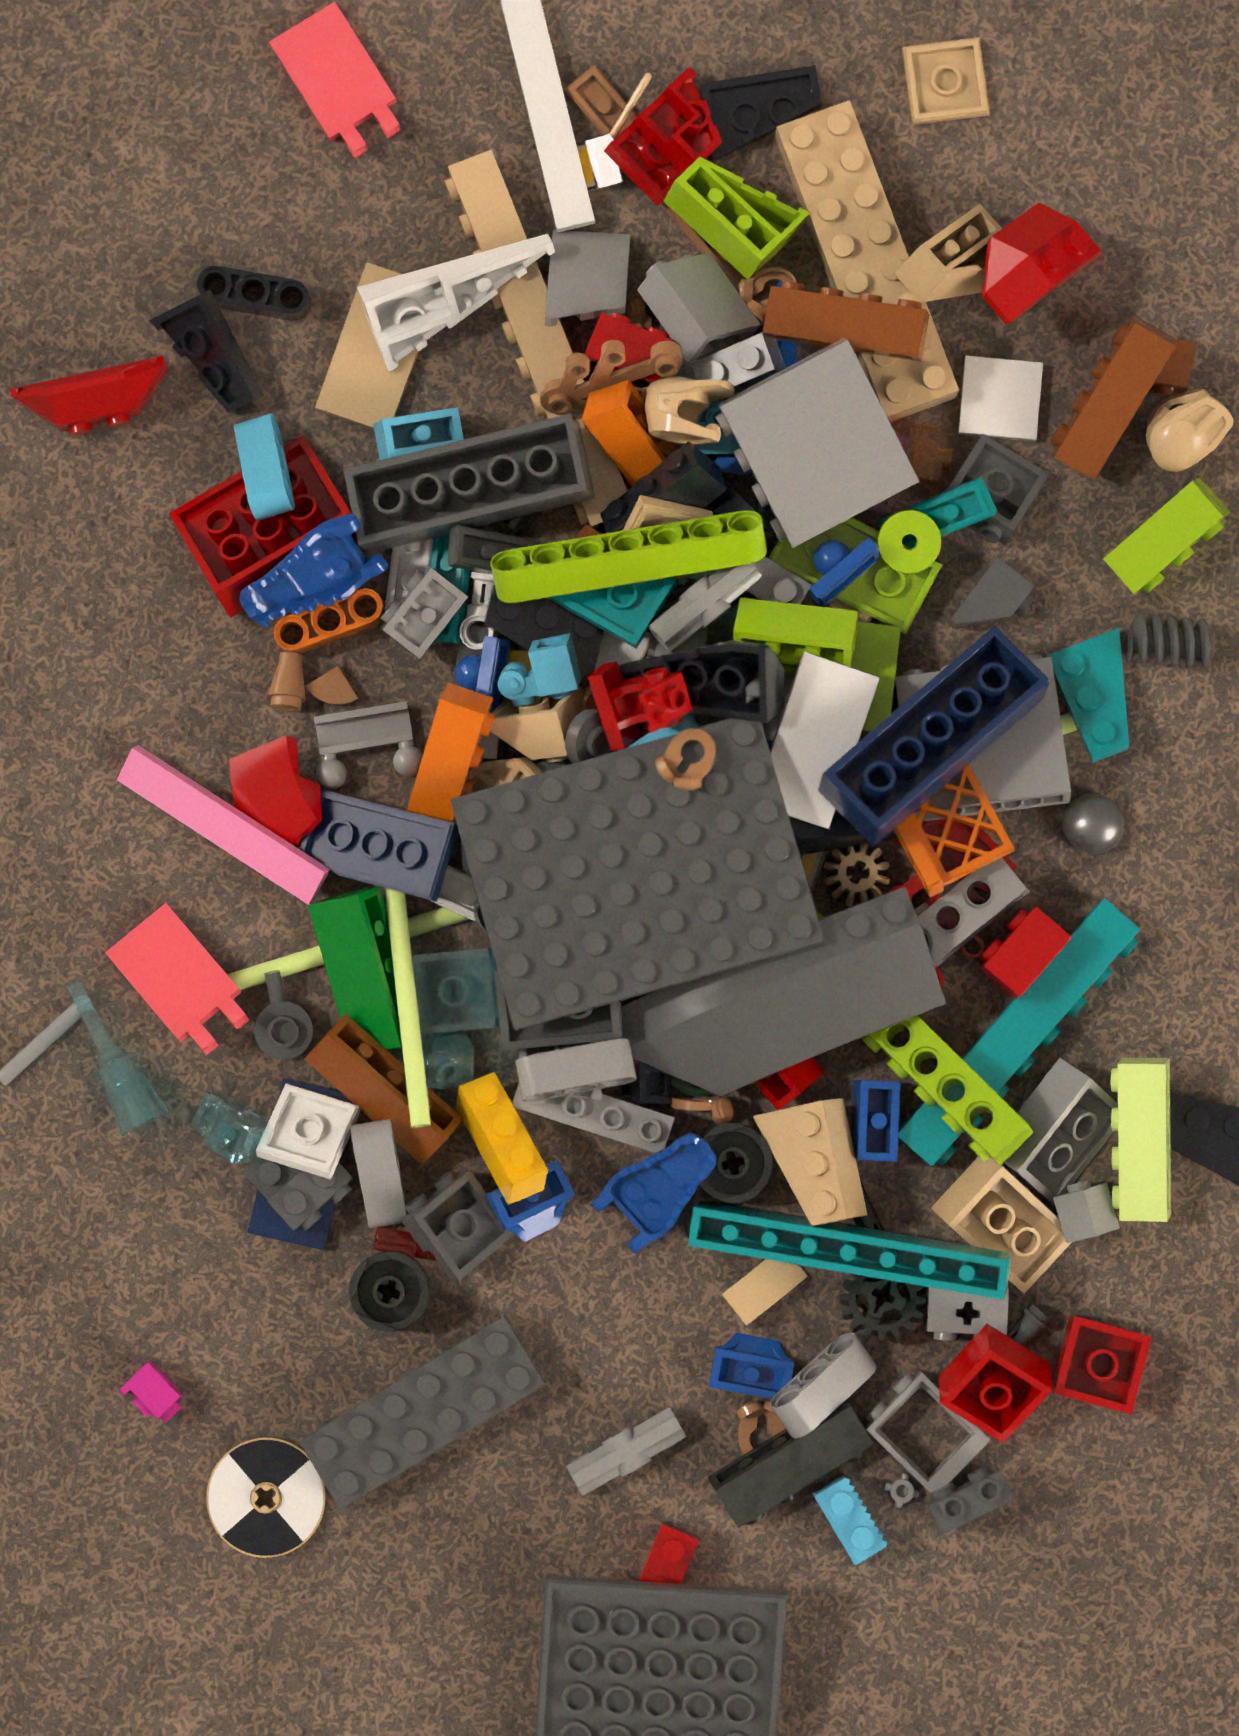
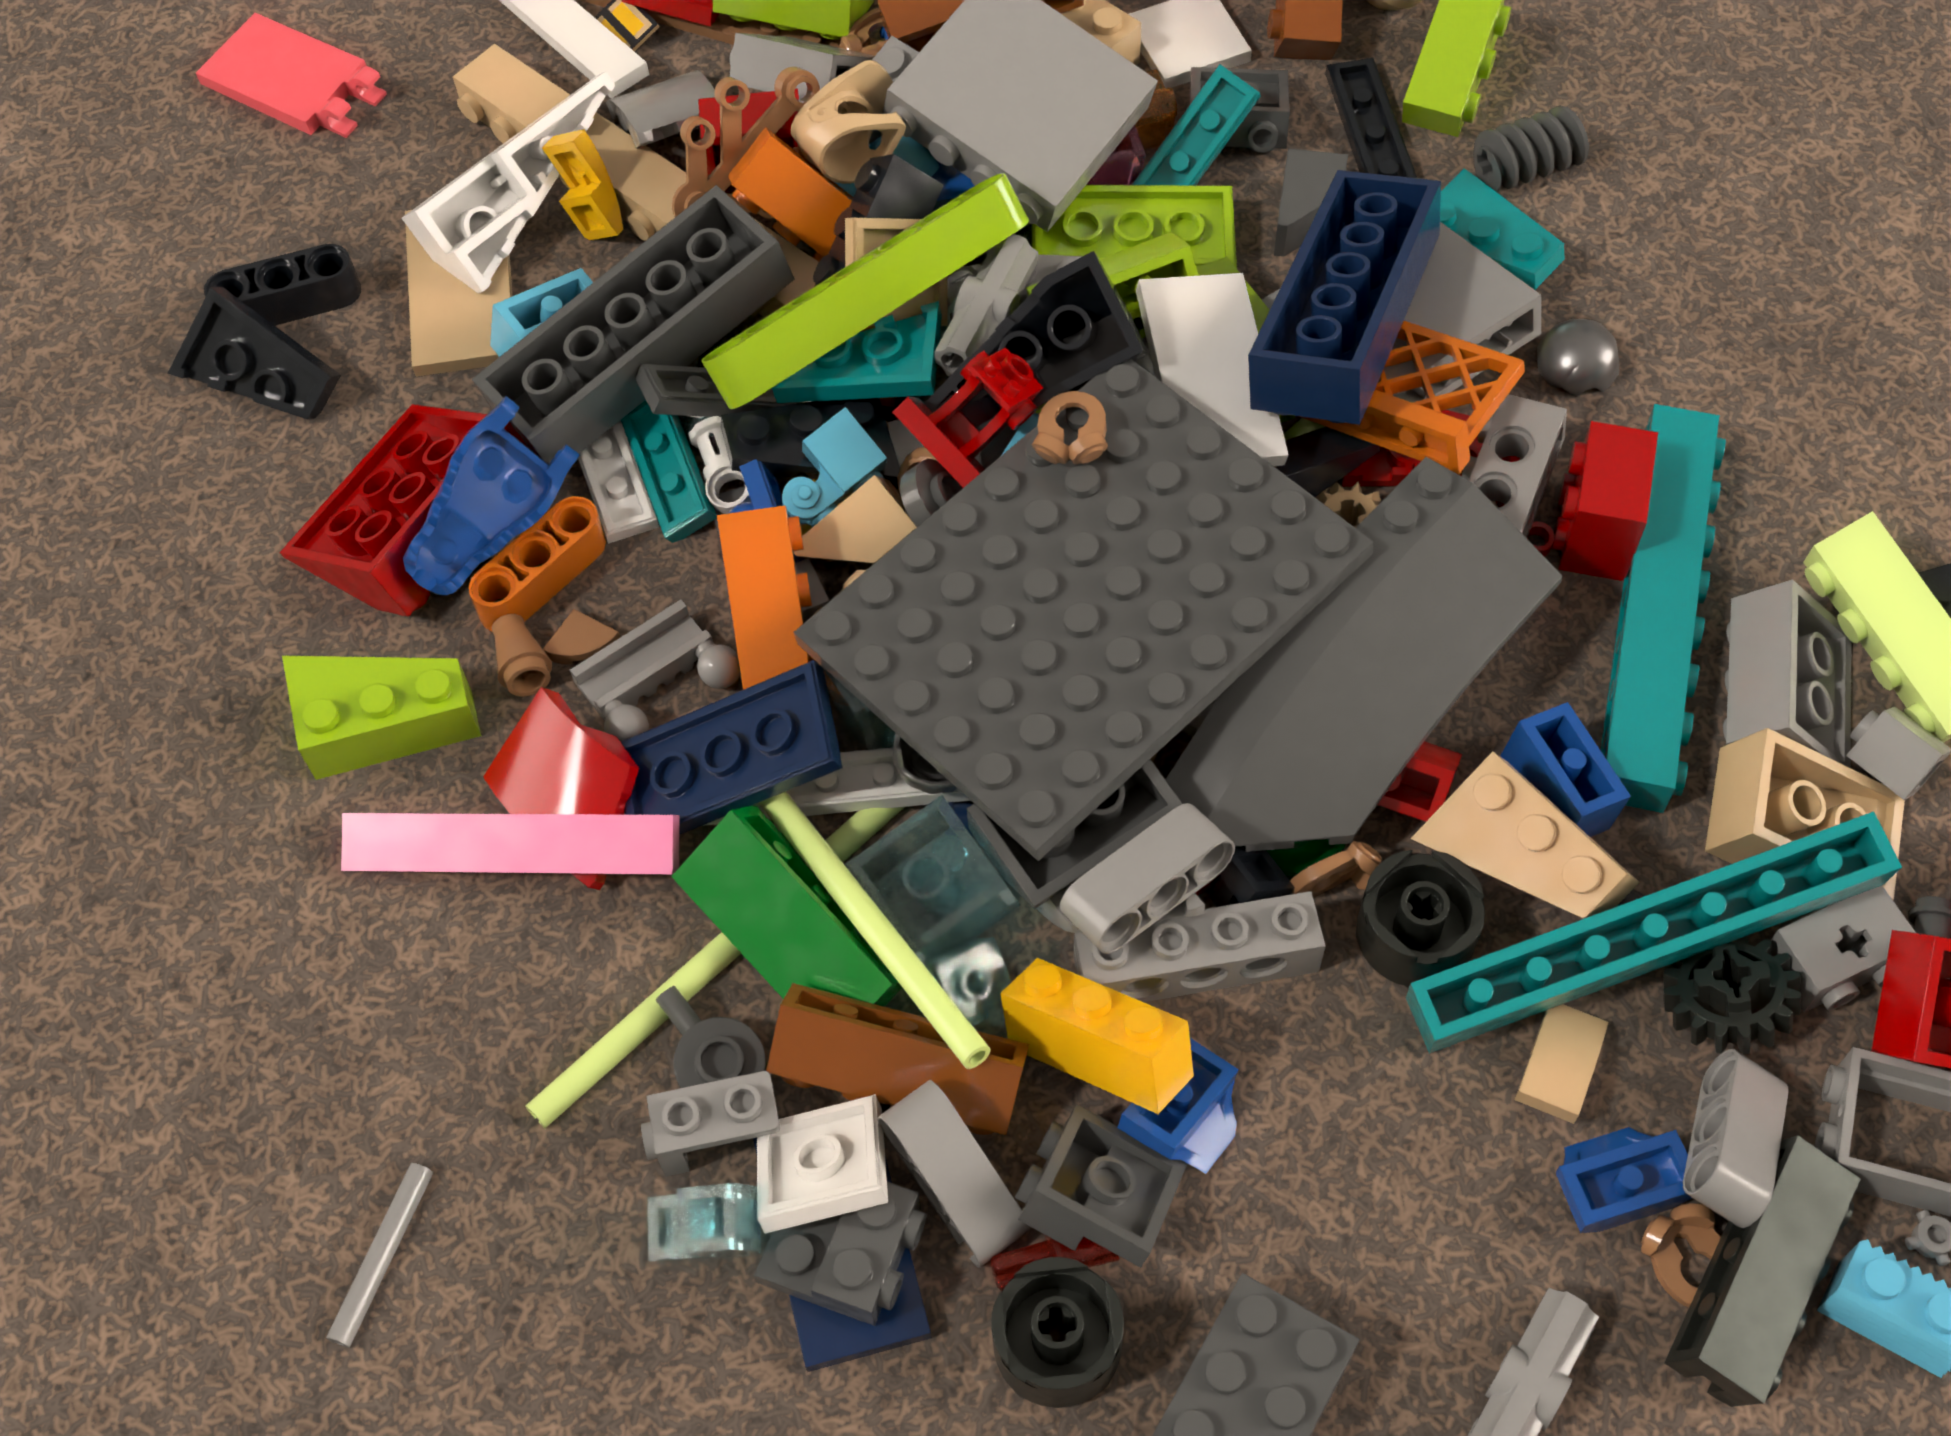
camera: 25 degrees left, 25 degrees down
(93, 396) = (118, 461): red wedge -> none
(119, 1072) = (512, 1237): clear light blue piece -> none
(177, 977) = (538, 1067): coral tile -> none
(180, 680) = (375, 708): none -> lime wedge
(260, 1068) = (707, 1118): none -> light grey bracket
(264, 467) = (375, 435): medium azure beam -> none
(422, 611) = (649, 490): light grey bracket -> none
(497, 327) = (591, 196): none -> yellow slope
(658, 1187) = (1345, 995): blue animal -> none
(840, 567) = (1123, 221): blue tile -> none
(909, 559) = (1183, 149): lime piece -> none
(1007, 1129) = (1624, 650): lime brick -> none
(1077, 562) = (1368, 118): none -> black tile

